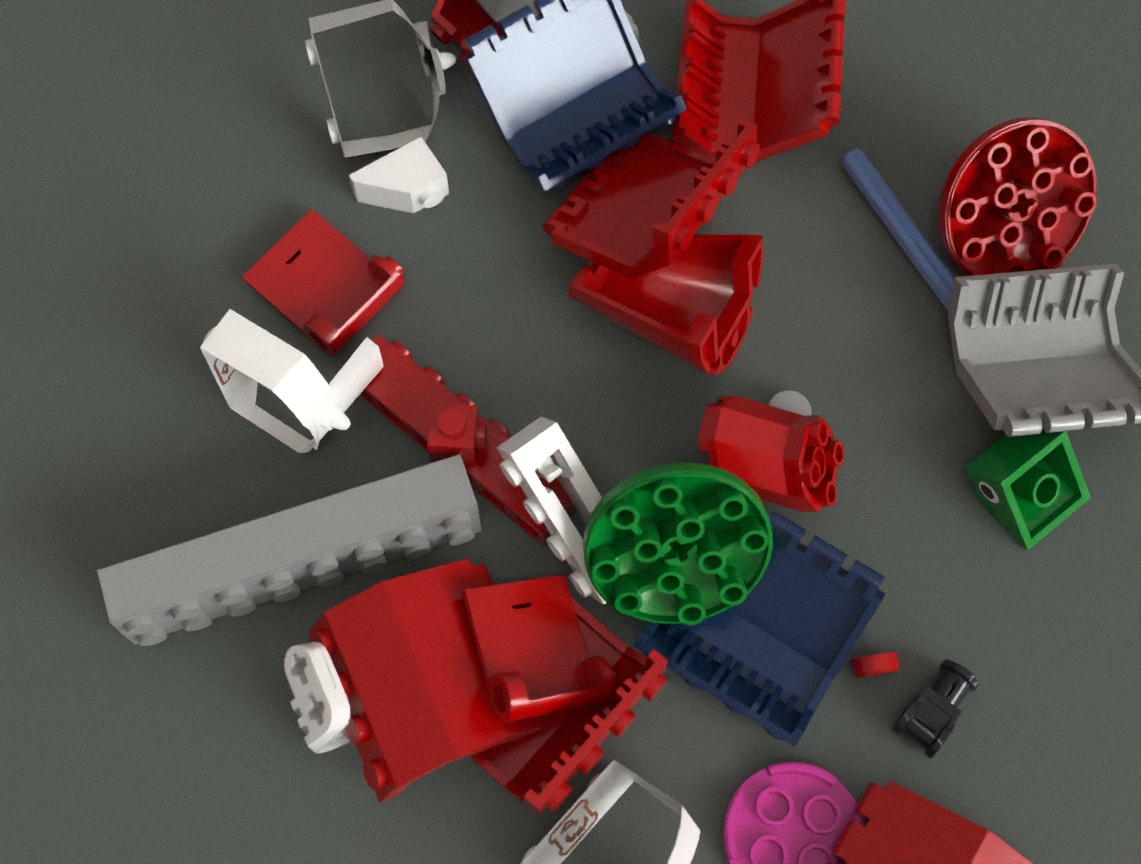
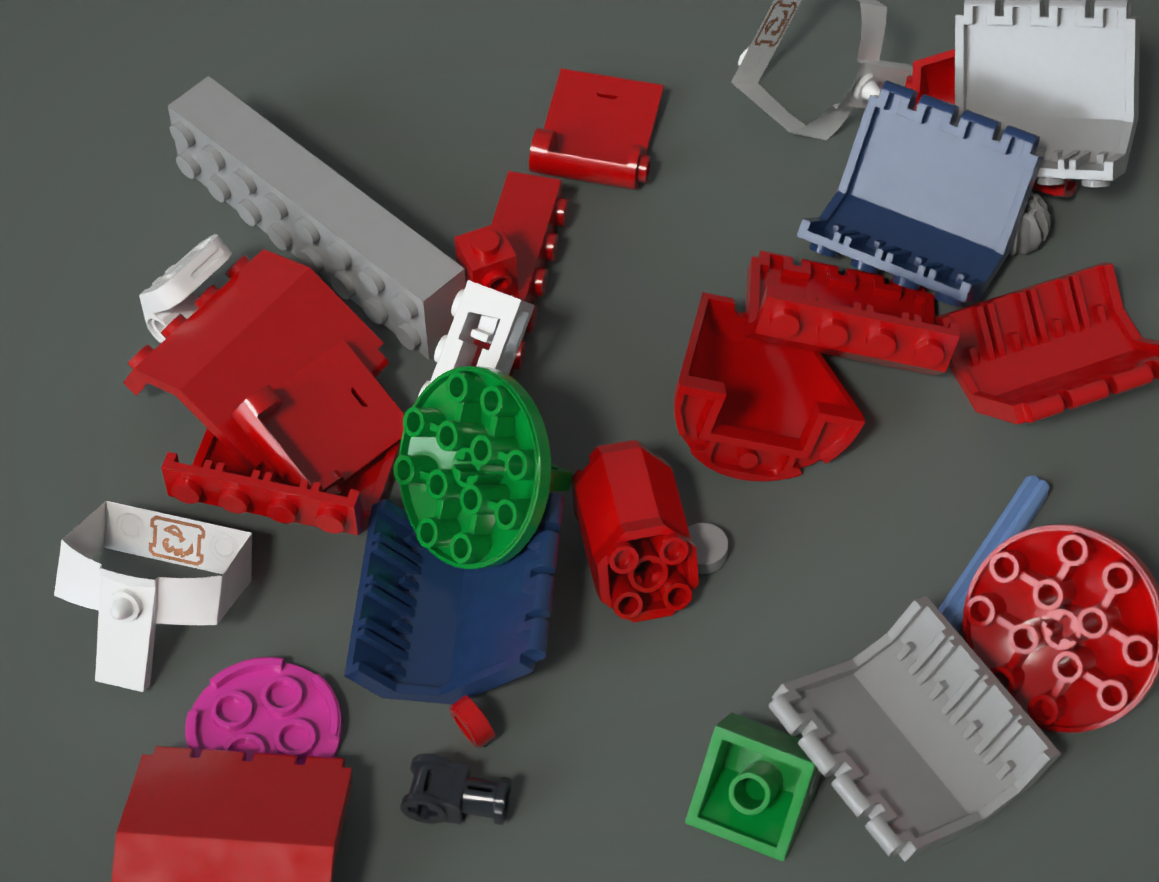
camera: 65 degrees right, 15 degrees down
(247, 354) = (452, 114): white piece -> none
(402, 179) = (743, 135): white slope -> none

